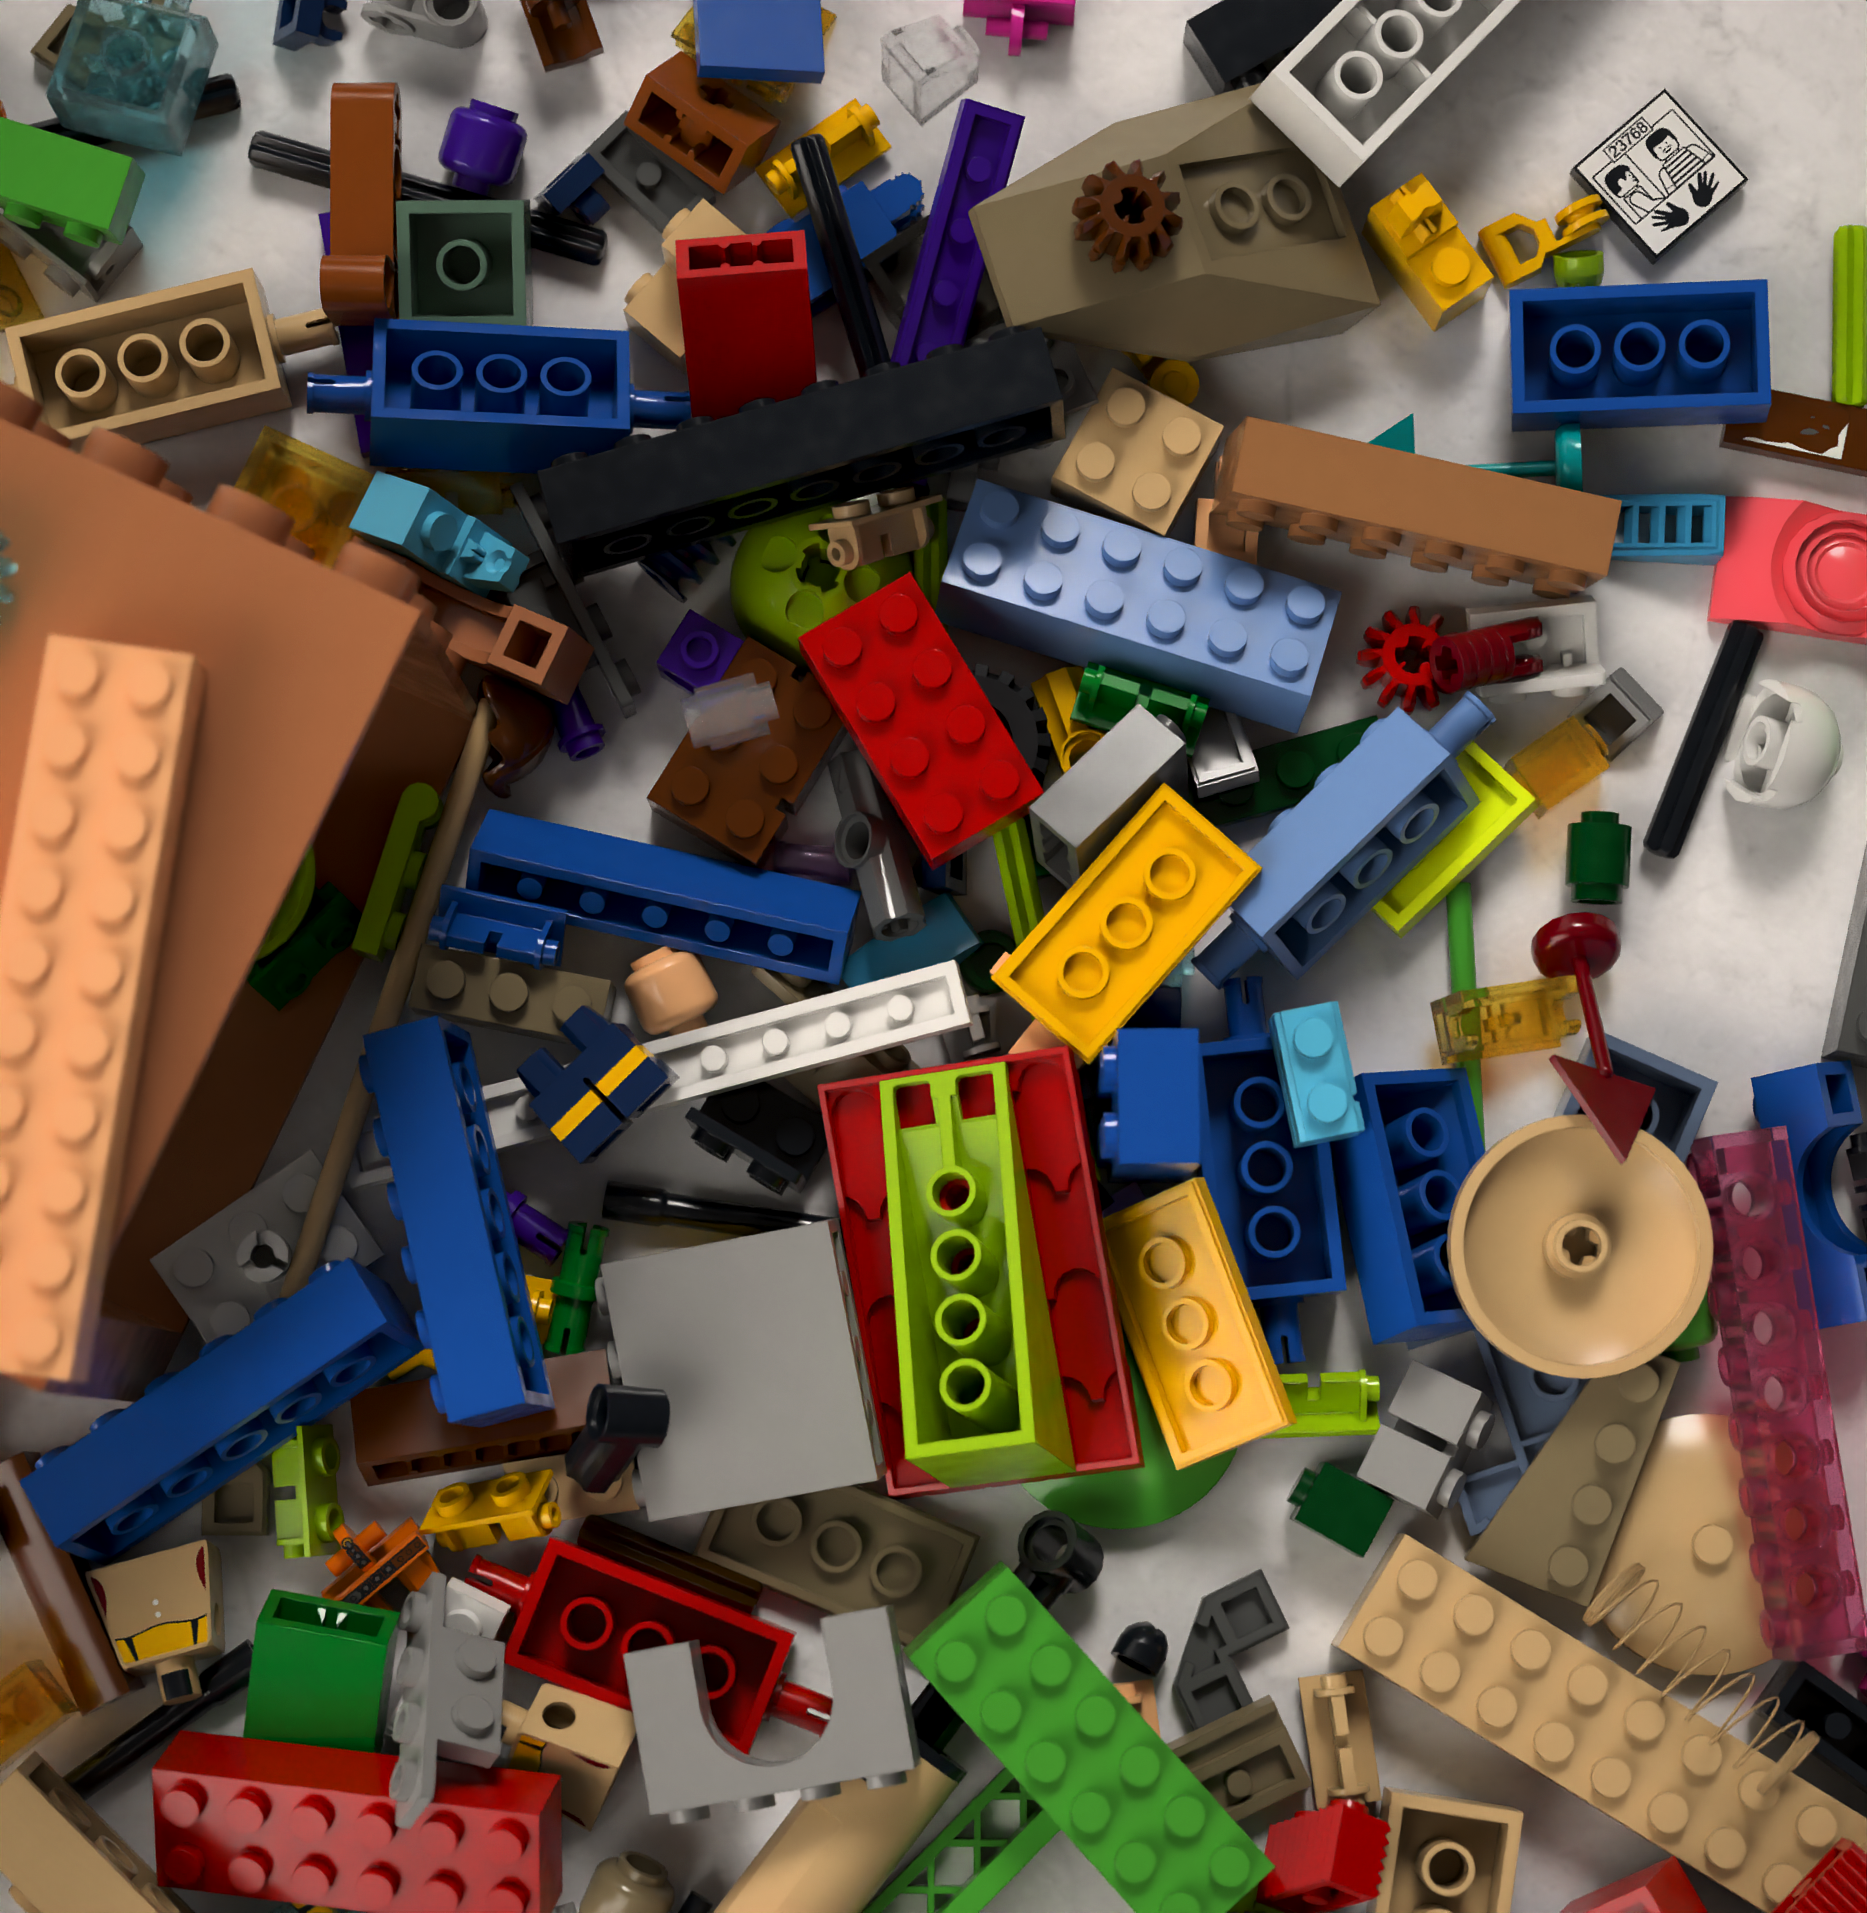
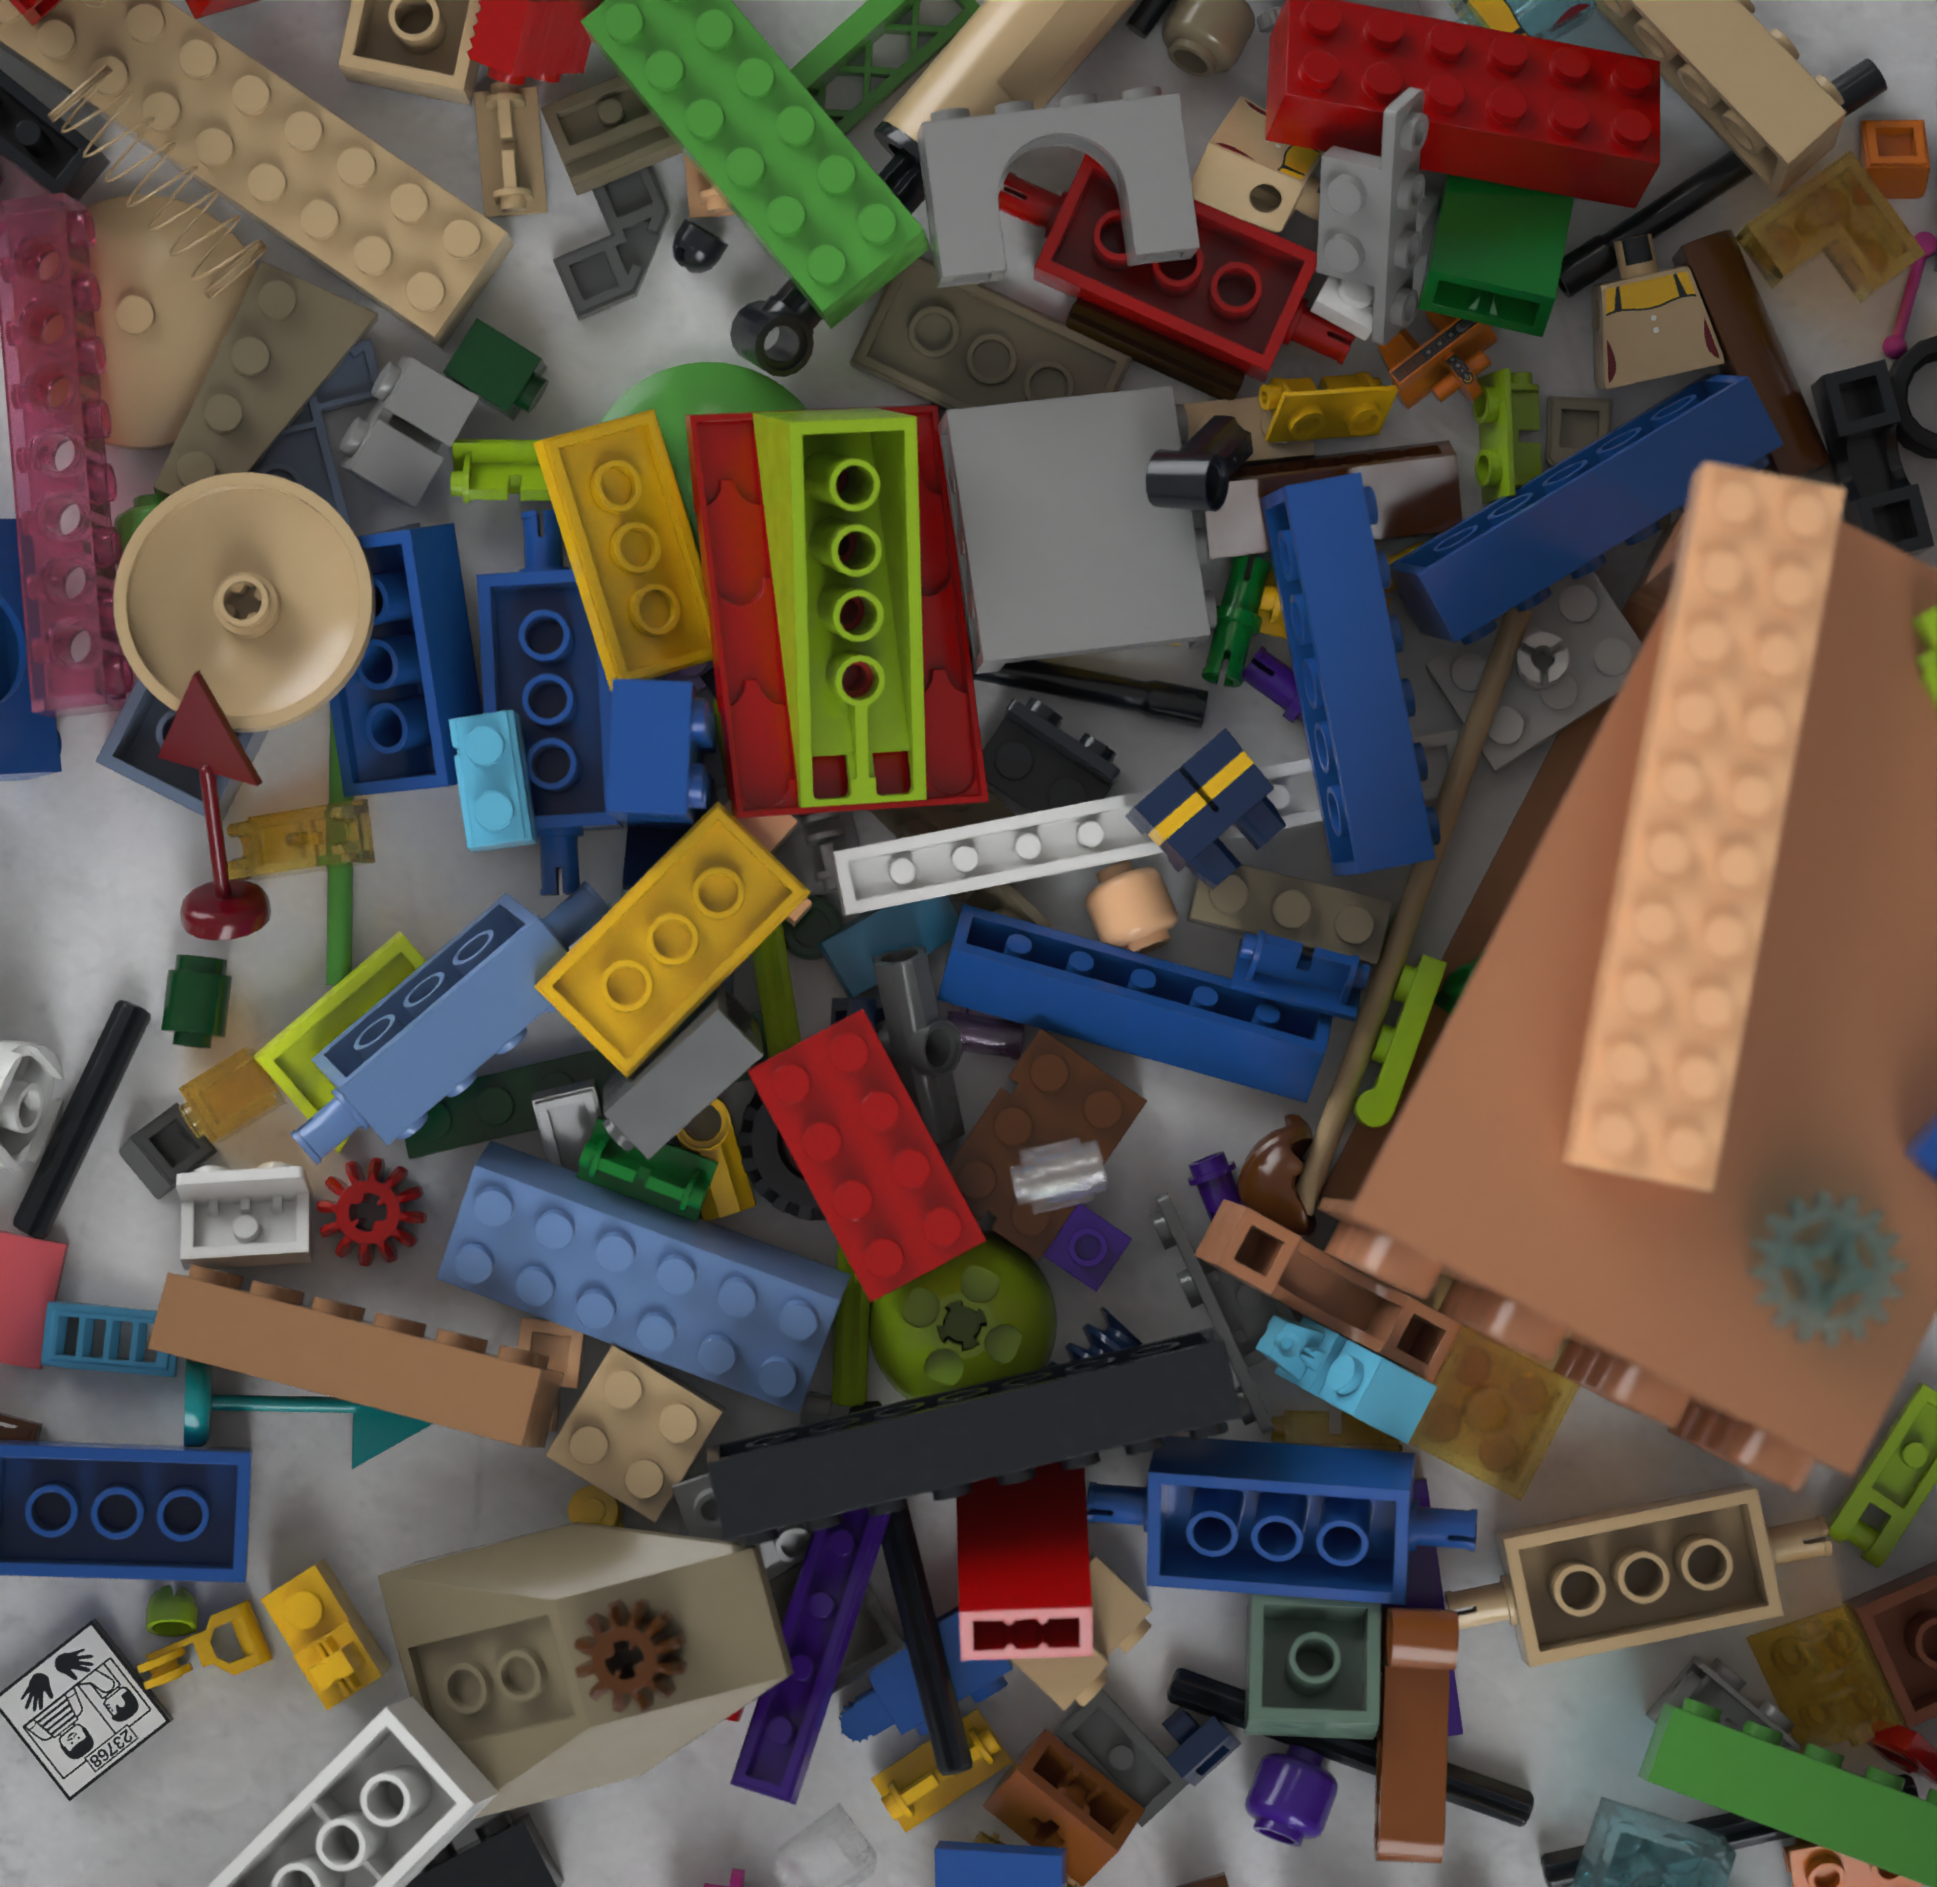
camera: 175 degrees left, 5 degrees up
(857, 527) = (923, 1365): tan hinge -> none
(1484, 655) = (295, 1205): dark red hinge -> none

